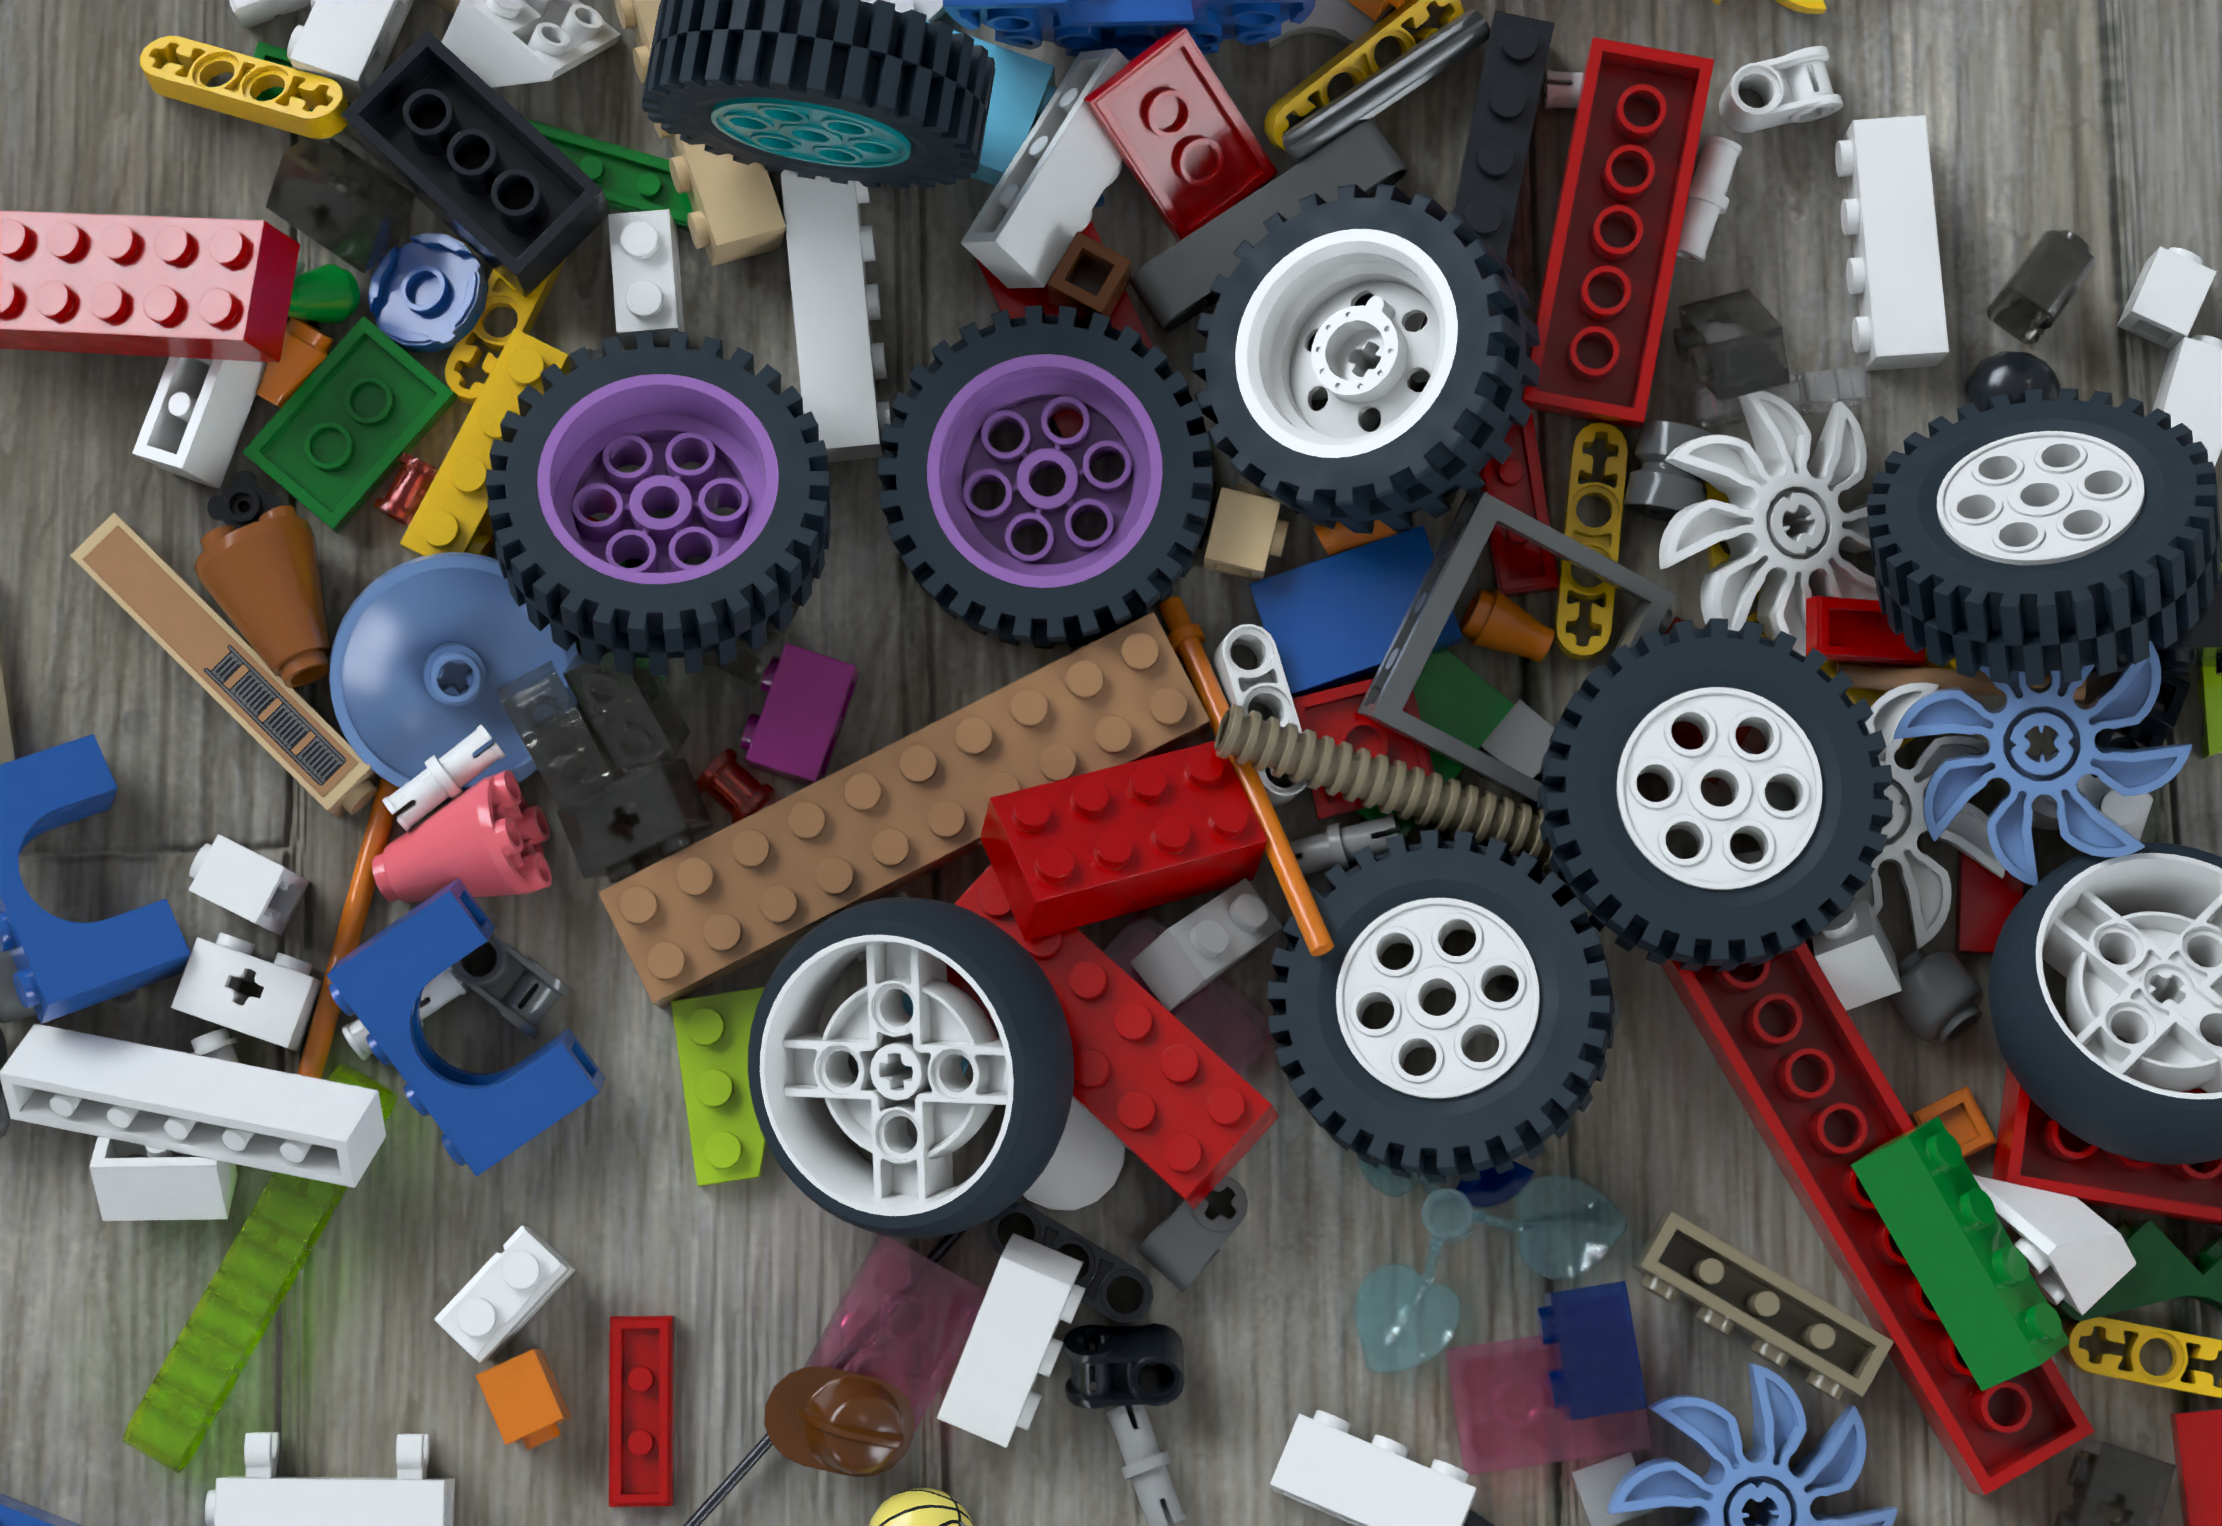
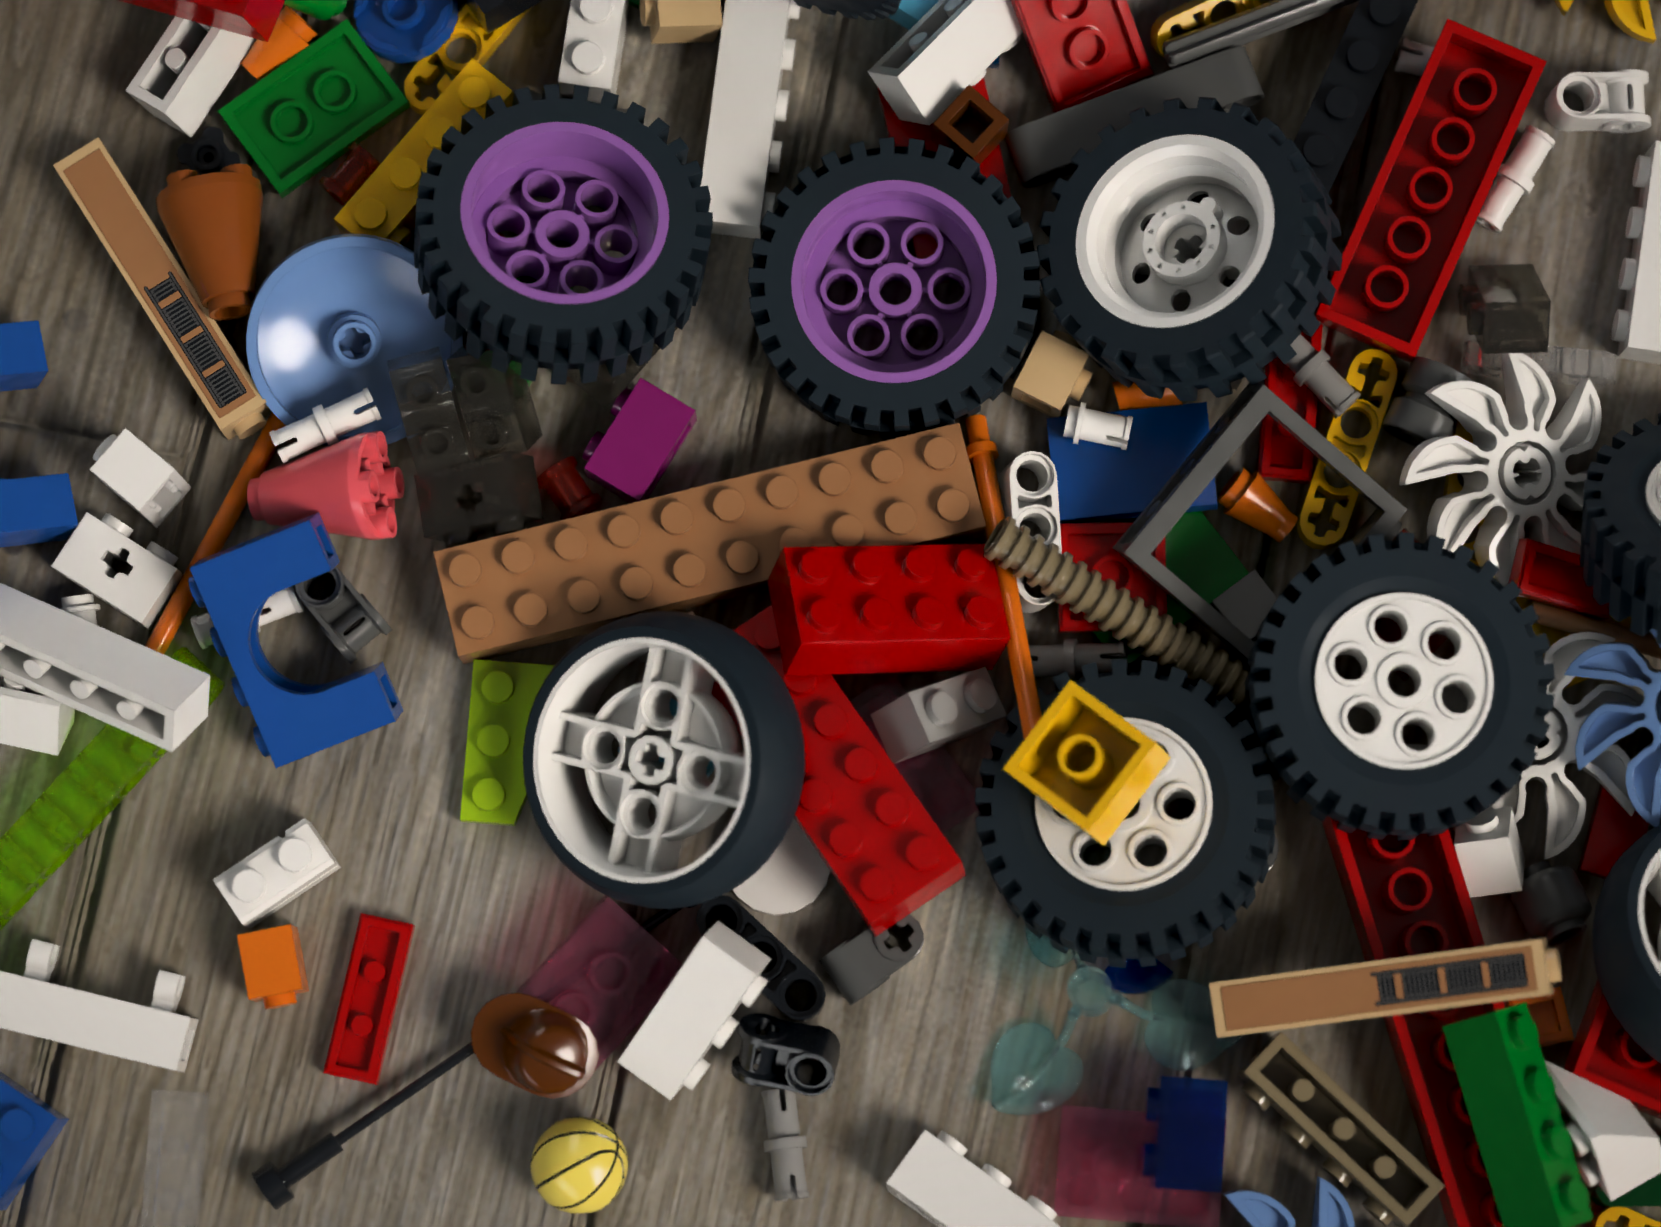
camera: 10 degrees right, 0 degrees up
(1308, 580) = (1097, 427): none -> white pin
(1387, 962) = (1087, 762): none -> yellow brick
(1544, 469) = (1320, 377): none -> light grey pin
(1776, 1135) = (1385, 987): none -> brick

